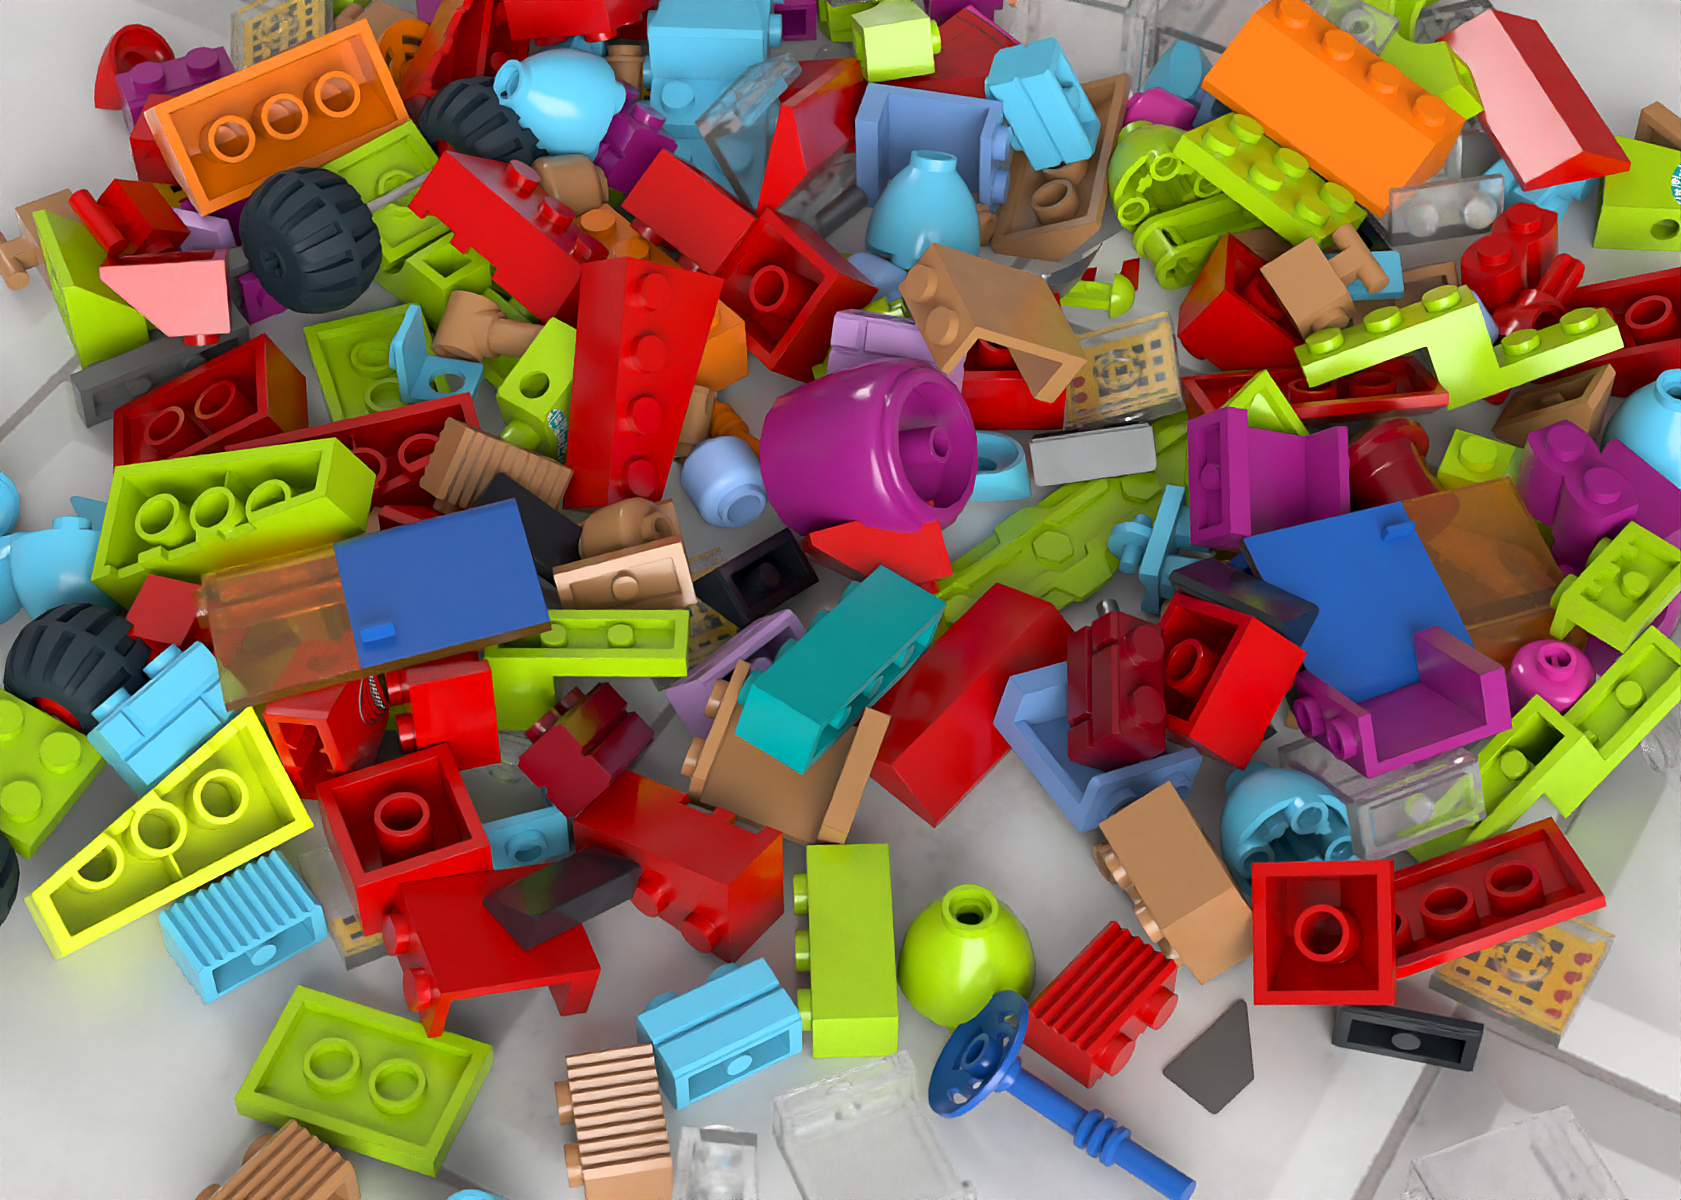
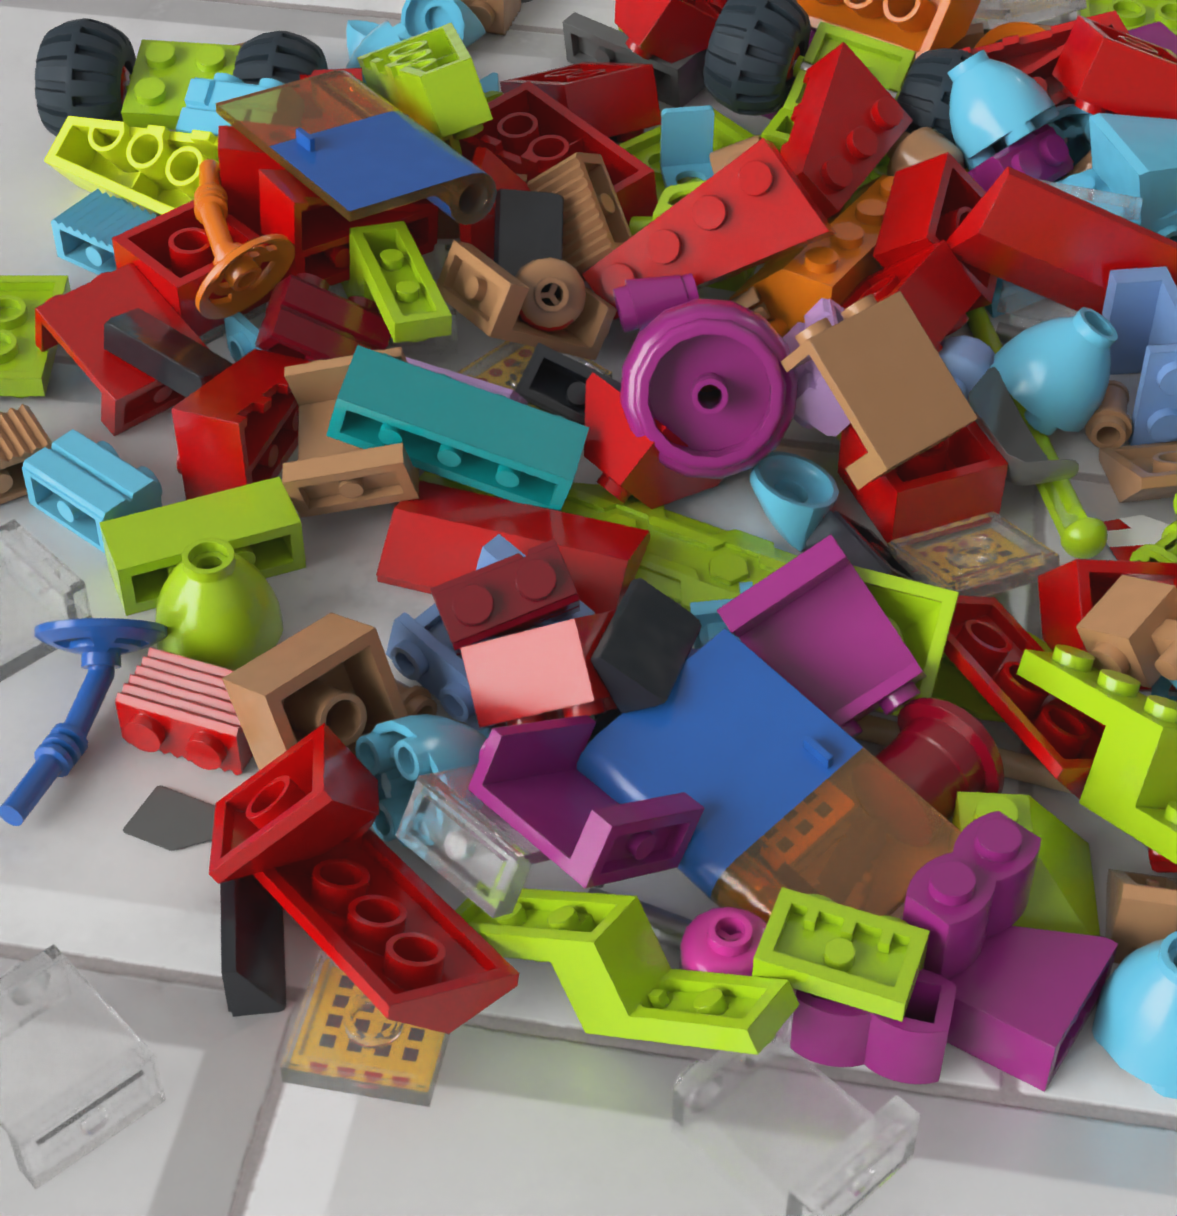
camera: 70 degrees right, 5 degrees down
(512, 771) = (241, 269): none -> orange dish
(691, 462) = (646, 298): none -> magenta cone

